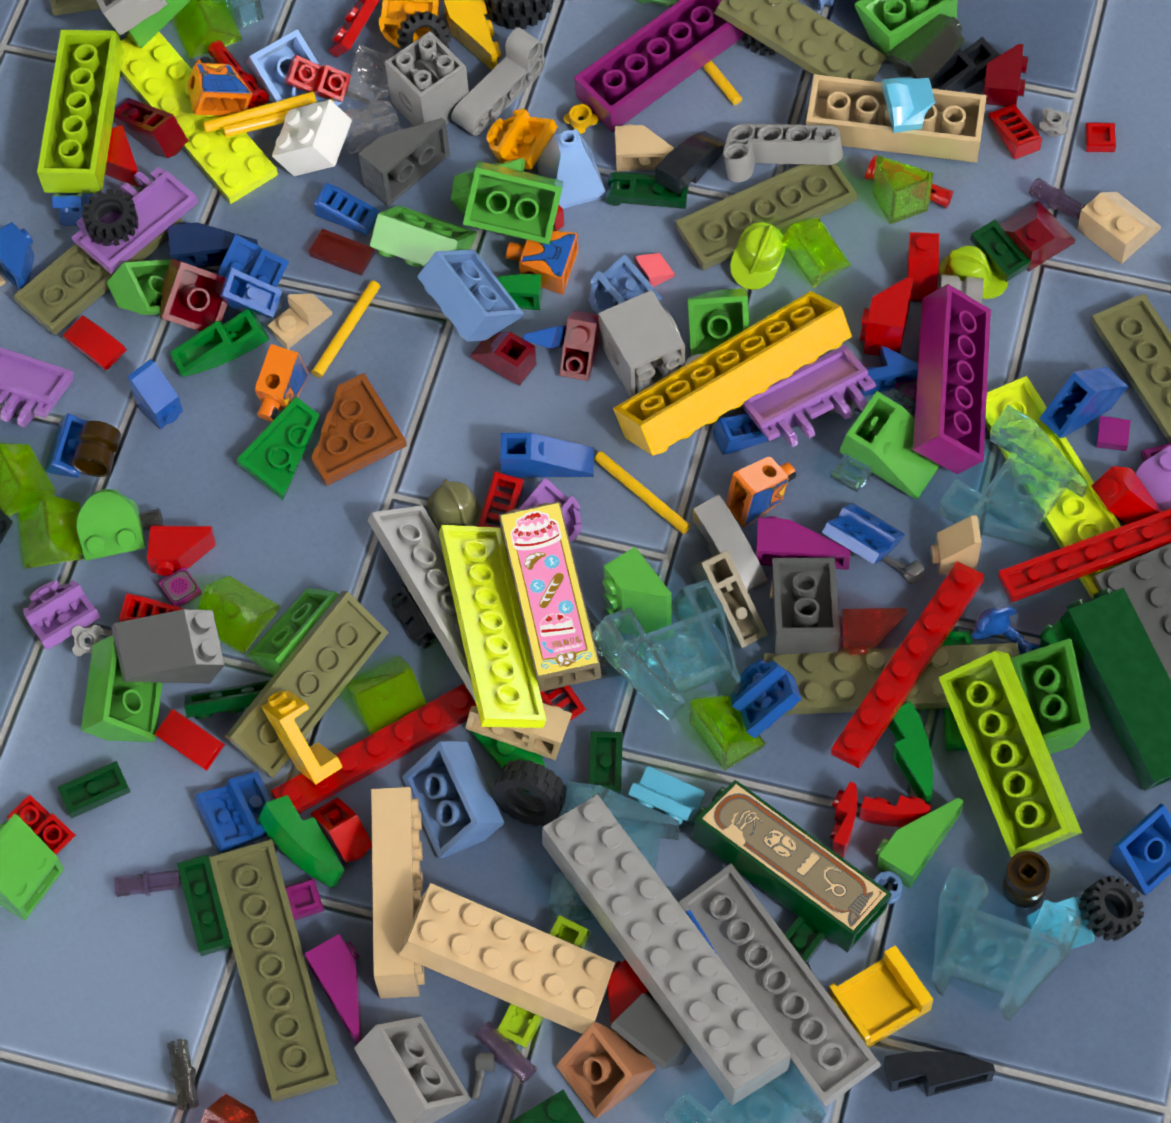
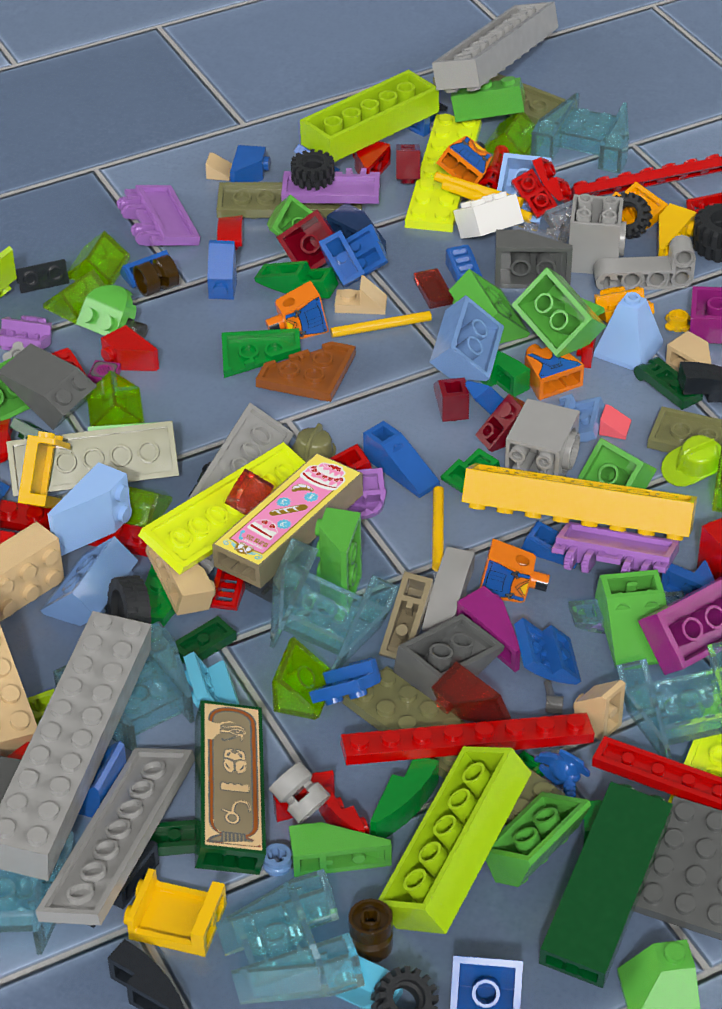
camera: 45 degrees right, 20 degrees down
(334, 57) = (556, 186): none -> red slope
(388, 717) = (91, 508): none -> light blue slope
(496, 604) = (248, 492): none -> clear red panel
(601, 418) = (456, 473): none -> green slope
(865, 824) = (291, 784): none -> light grey wheel

